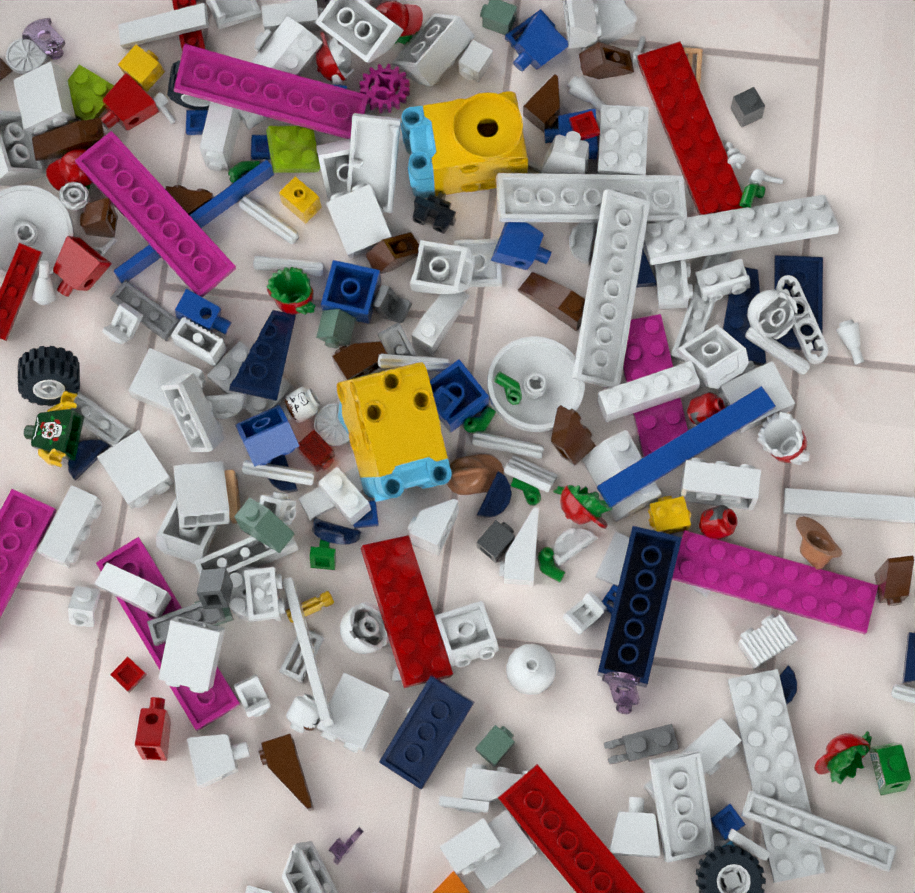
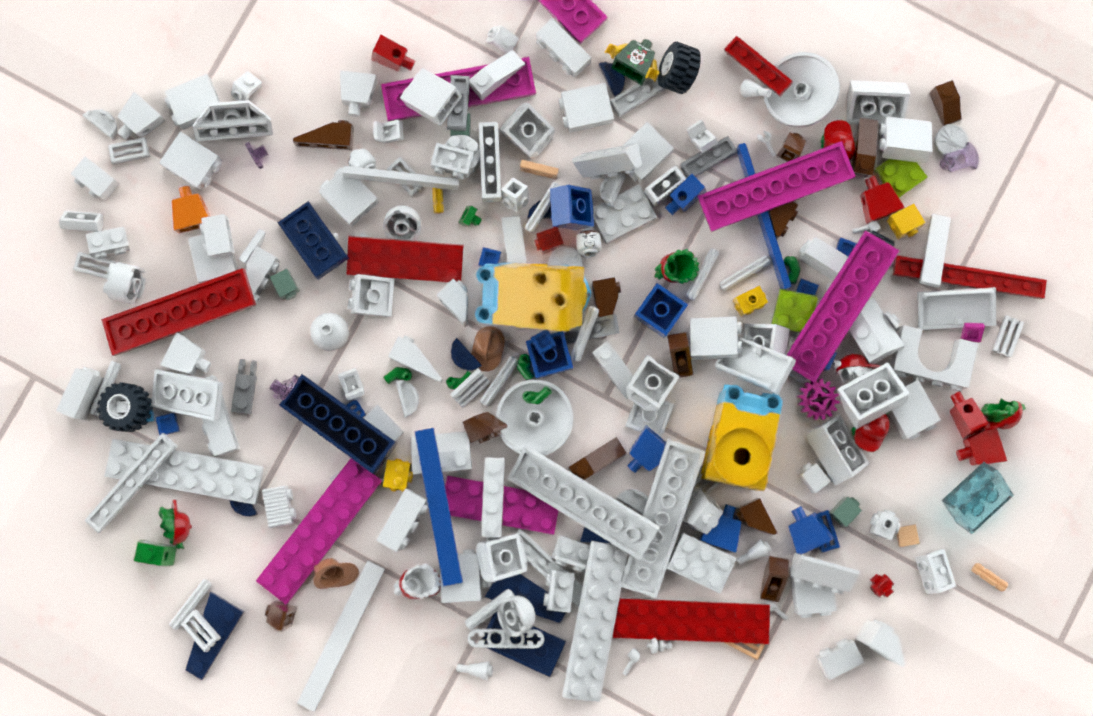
camera: 100 degrees right, 10 degrees up
(74, 189) = (822, 135): white plate -> none
(78, 266) = (760, 120): torso -> none
(128, 674) = (440, 52): red plate -> none
(201, 494) = (547, 145): white brick -> none
(214, 588) = (468, 127): dark grey brick -> none
(263, 525) = (500, 178): sand green slope -> none
(264, 366) = (630, 228): dark blue wing -> none
(335, 328) = (636, 288): sand green brick -> none
(335, 533) = (482, 231): dark blue tile -> none
(344, 495) = (505, 246): white brick -> none
(390, 305) = (639, 337): dark grey bracket -> none
(435, 208) = (706, 390): black hips -> none
(496, 540) = (430, 343): dark grey brick -> none
(581, 505) = (429, 414): hair -> none
(585, 125) = (722, 536): red plate -> none
(704, 407) = (465, 535): red head -> none
(718, 522) = (377, 508): red head -> none
(747, 107) = (693, 673): dark grey brick -> none
(748, 845) = (145, 429): white tile -> none
(750, 192) = (622, 643): green arm -> none

